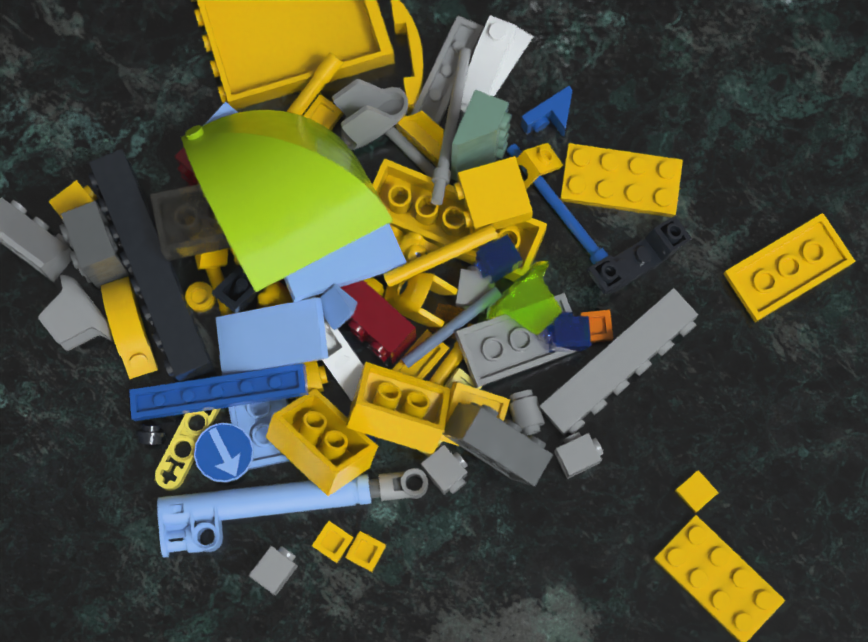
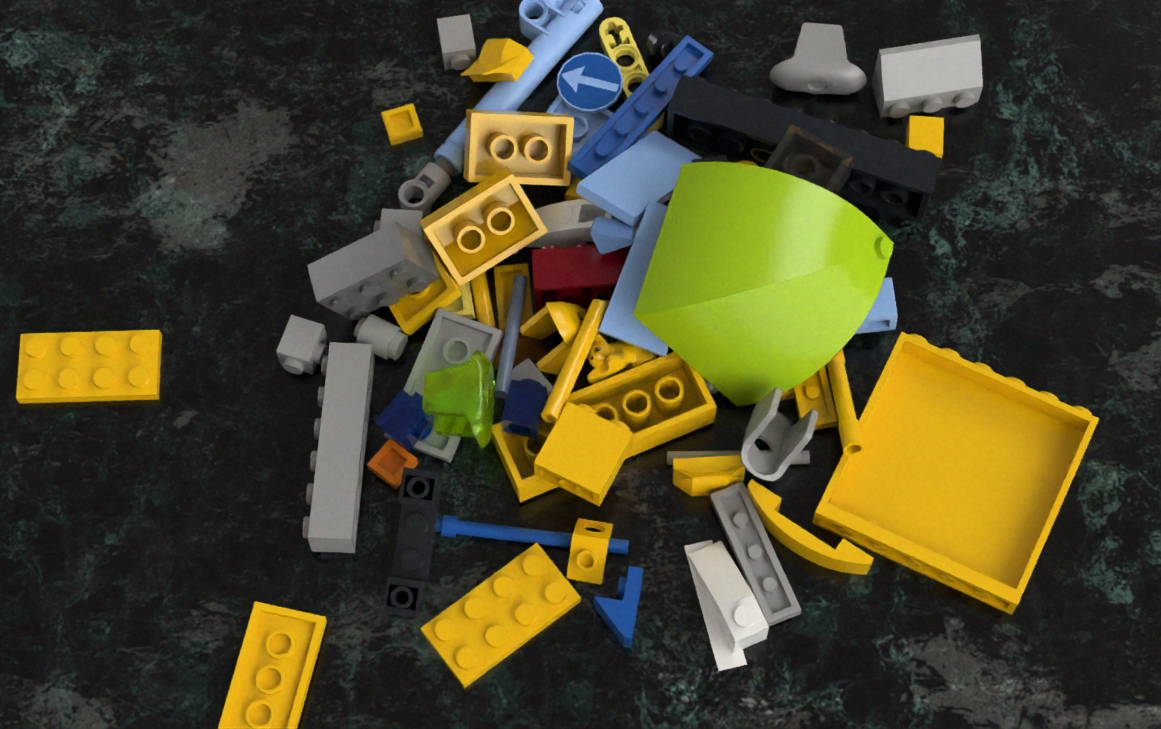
camera: 135 degrees right, 10 degrees down
(93, 245) = (865, 100): dark grey brick -> none
(127, 327) = (776, 86): yellow arch -> none
(270, 520) = (500, 61): none -> yellow slope
(332, 542) = (435, 107): yellow tile -> none
(441, 173) = (651, 435): light grey bar -> none
(481, 133) = (654, 494): sand green slope -> none
(696, 491) = (174, 416): yellow tile -> none

